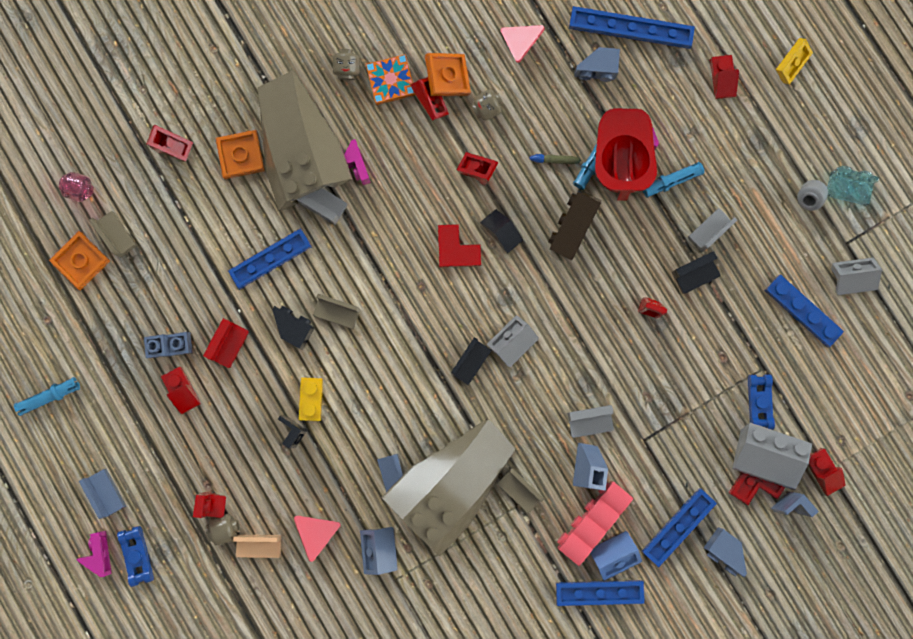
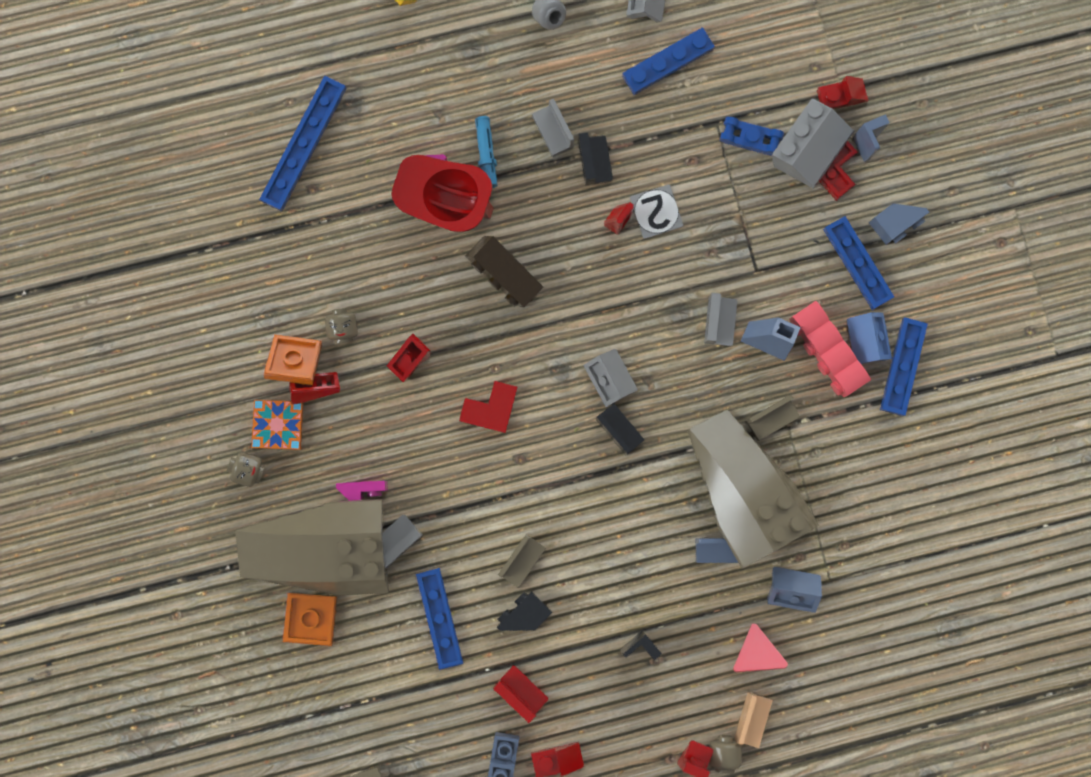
camera: 75 degrees left, 0 degrees up
(169, 143) = (274, 695): slope -> none
(310, 399) = (609, 617): yellow plate -> none
(502, 230) = (485, 352): black slope -> none
(521, 39) = (278, 266): piece -> none
(558, 159) = (424, 270): olive piece -> none
(587, 171) = (456, 249): dark azure pin -> none
(601, 65) = (334, 188): sand blue slope -> none
(668, 339) = (656, 211): none -> sticker
(724, 76) = (389, 62): red slope -> none

